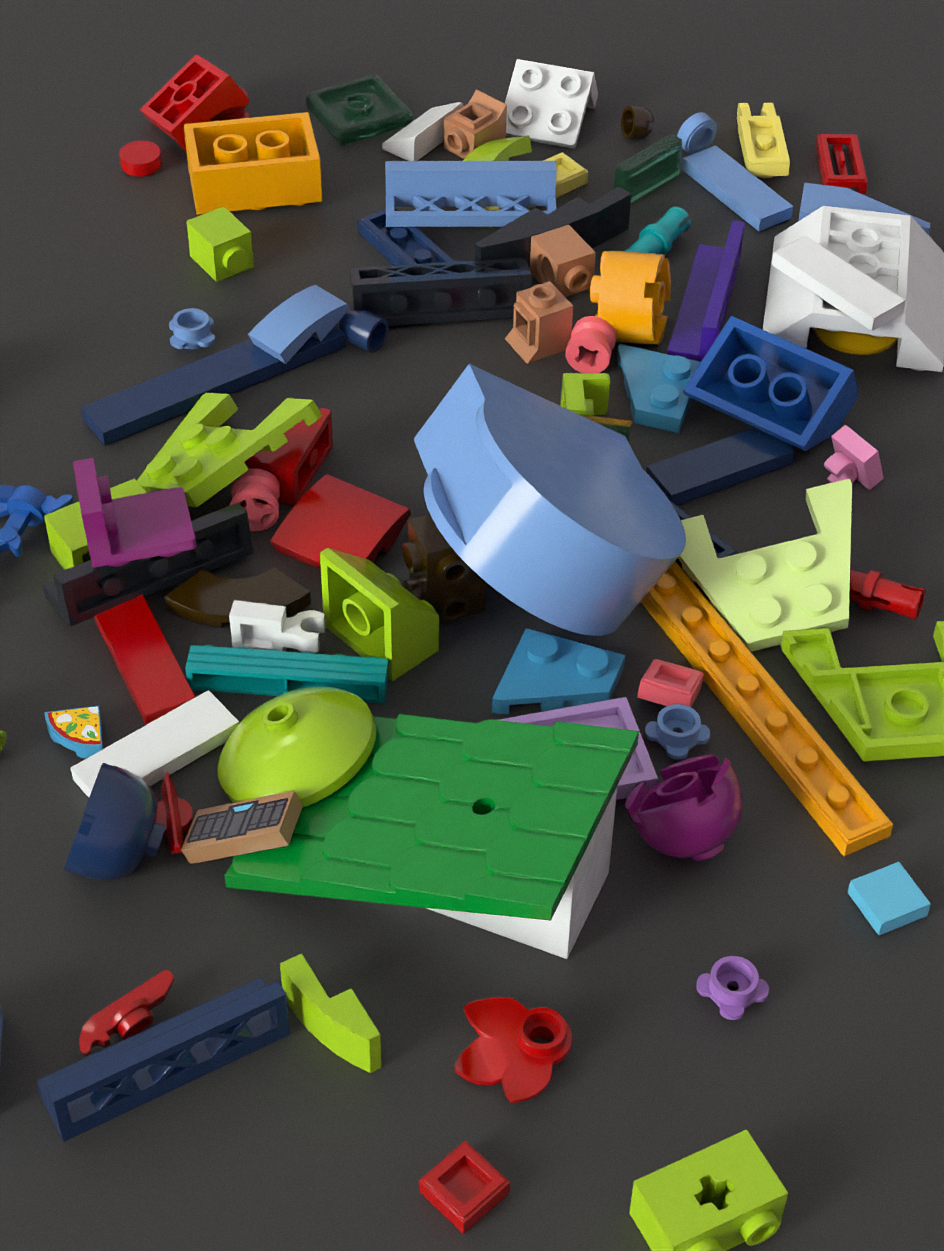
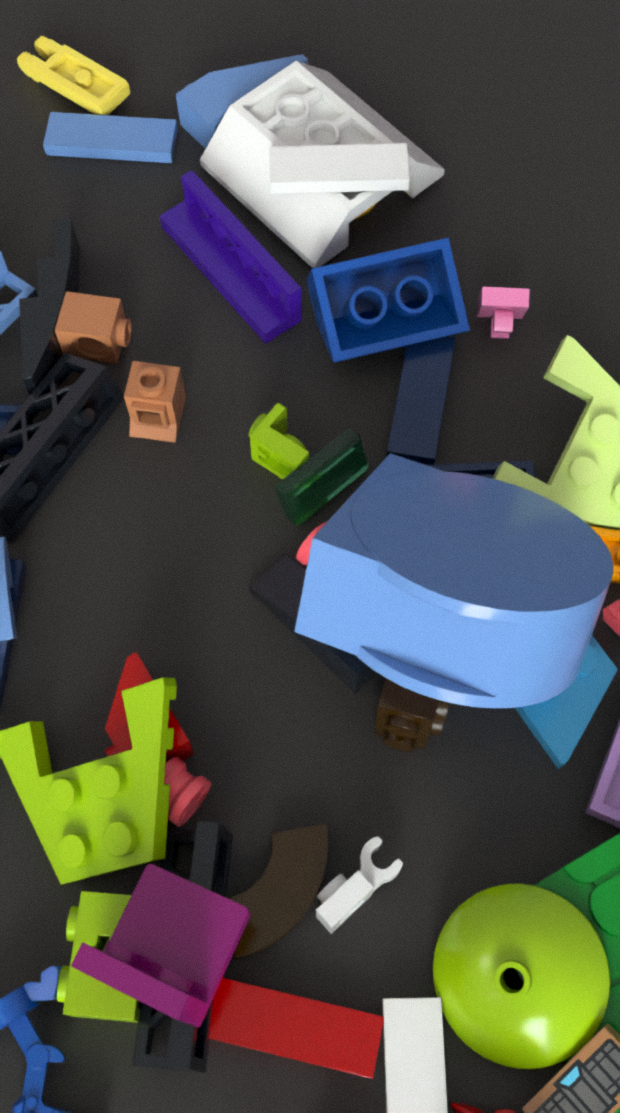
camera: 50 degrees left, 20 degrees up
(280, 672) = (407, 914): teal piece -> none
(340, 519) = (266, 741): red slope -> none
(364, 329) = (29, 540): dark blue hose -> none
(376, 612) = (414, 788): lime slope -> none
(590, 345) = (213, 383): coral wheel -> none
(633, 295) = (198, 314): light orange brick -> none
(649, 167) = (36, 181): clear green tile -> none
(656, 386) = (295, 370): dark azure wing -> none
(659, 236) = (125, 241): teal pin -> none
(697, 133) = (24, 112): medium blue tile -> none
(842, 178) = (144, 53): red tile -> none

